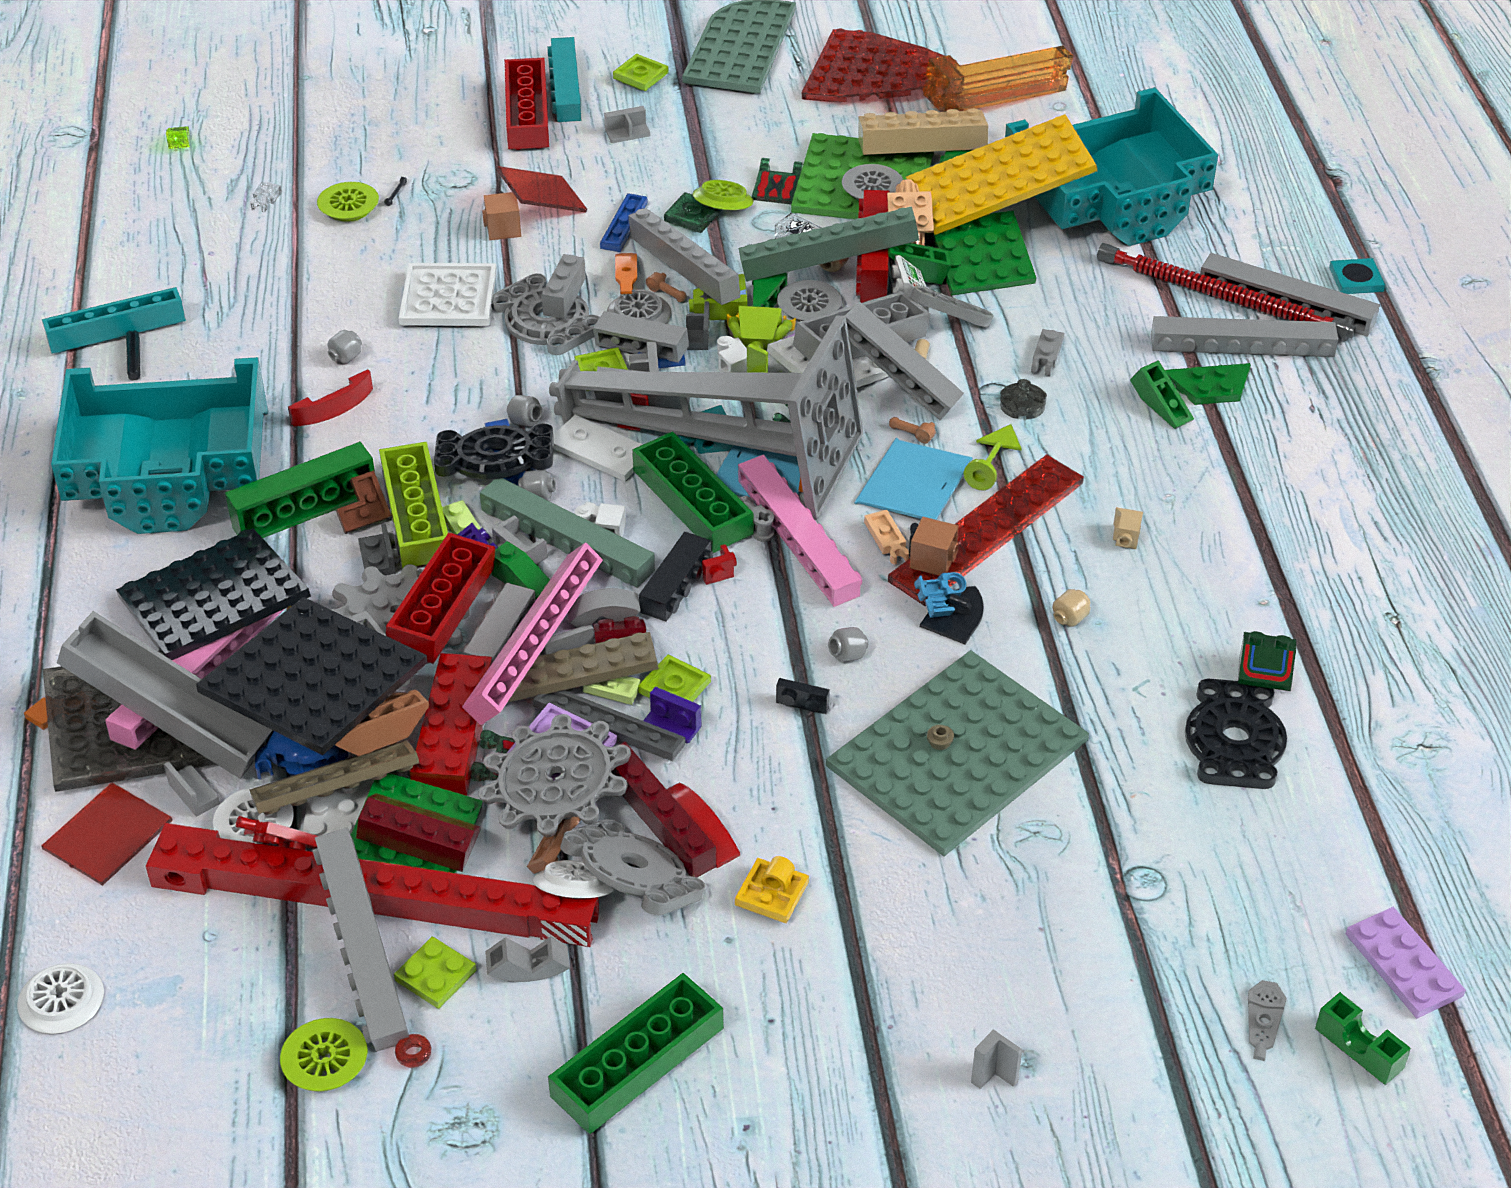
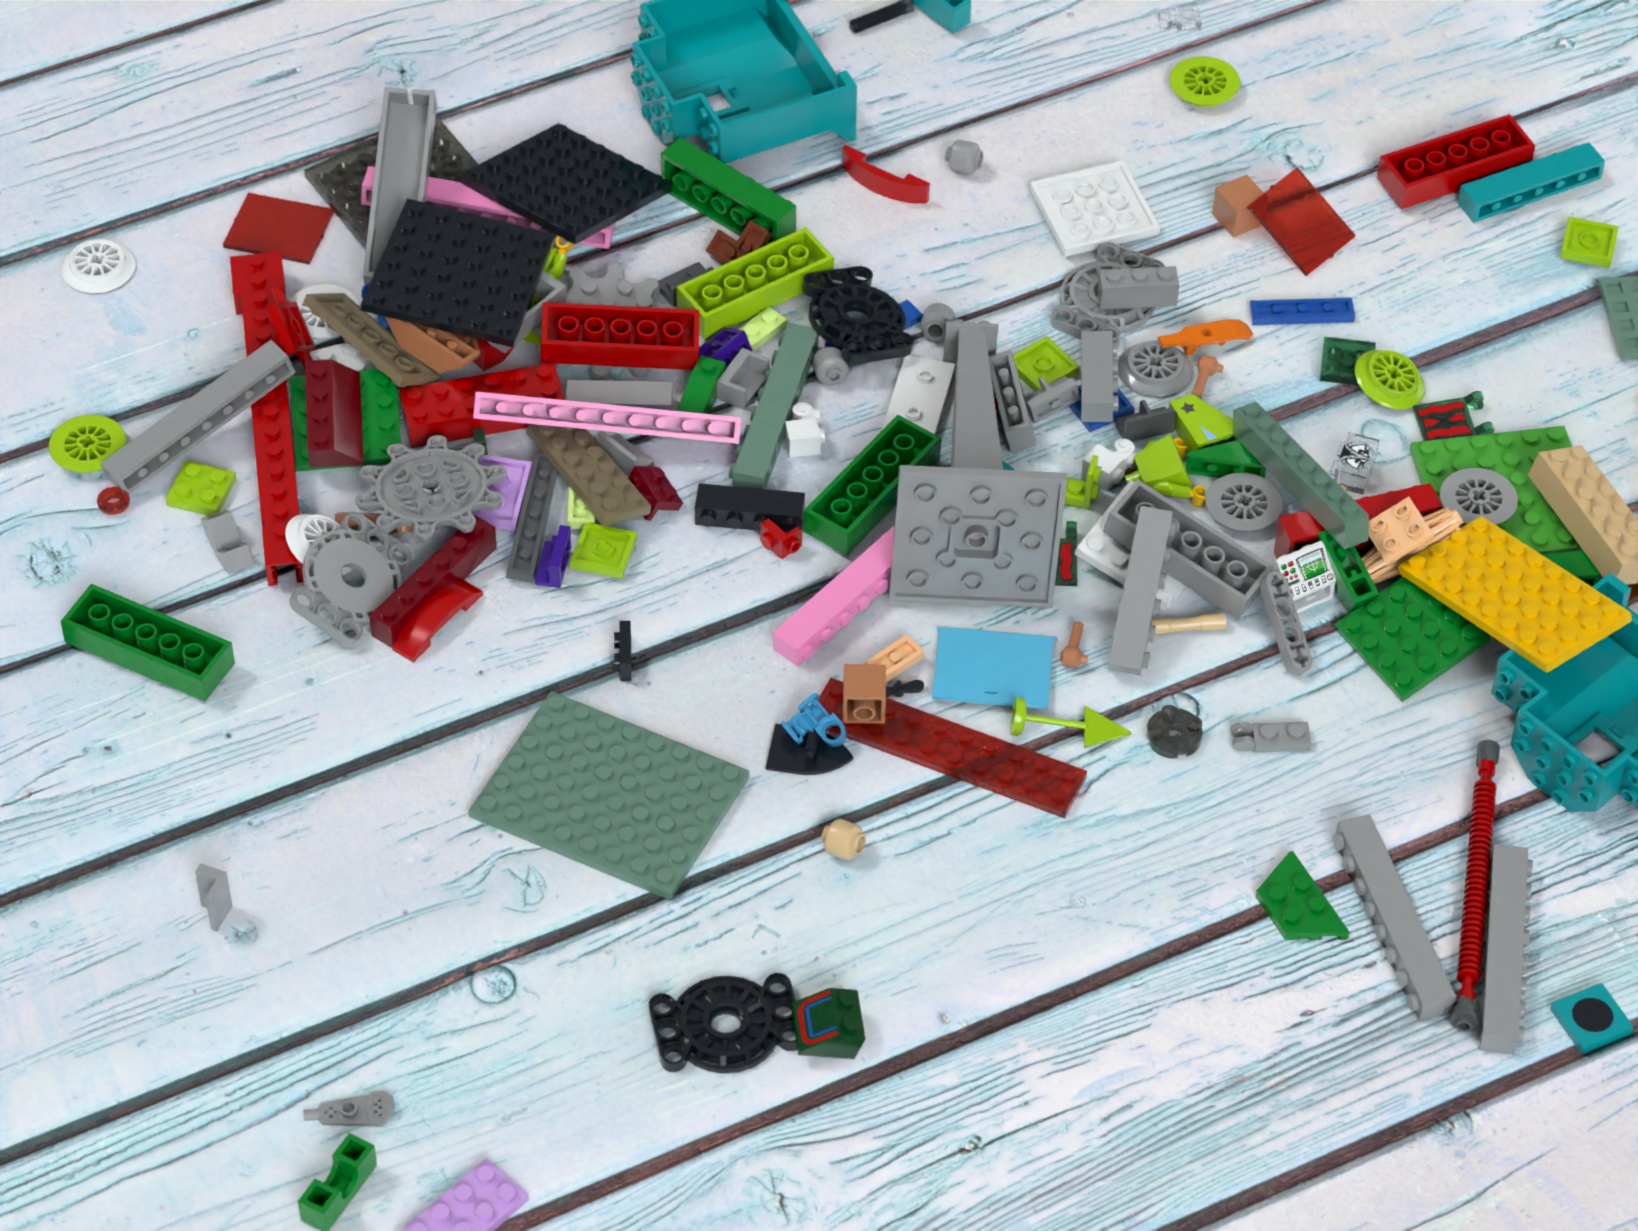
camera: 70 degrees right, 5 degrees up
(191, 789) = (340, 258): light grey panel -> none
(388, 201) = (1268, 113): black hinge -> none
(607, 602) = (678, 464): light grey brick -> none
(626, 124) = (1478, 260): light grey panel -> none
(684, 256) = (1239, 368): light grey brick -> none
(762, 520) = (861, 543): light grey connector -> none
(772, 888) = (371, 692): yellow plate -> none
(848, 644) = (711, 668): light grey head -> none
(940, 737) = (604, 772): dark tan plate -> none
(1127, 527) = (993, 867): tan window -> none
(1161, 395) = (1238, 855): green slope -> none

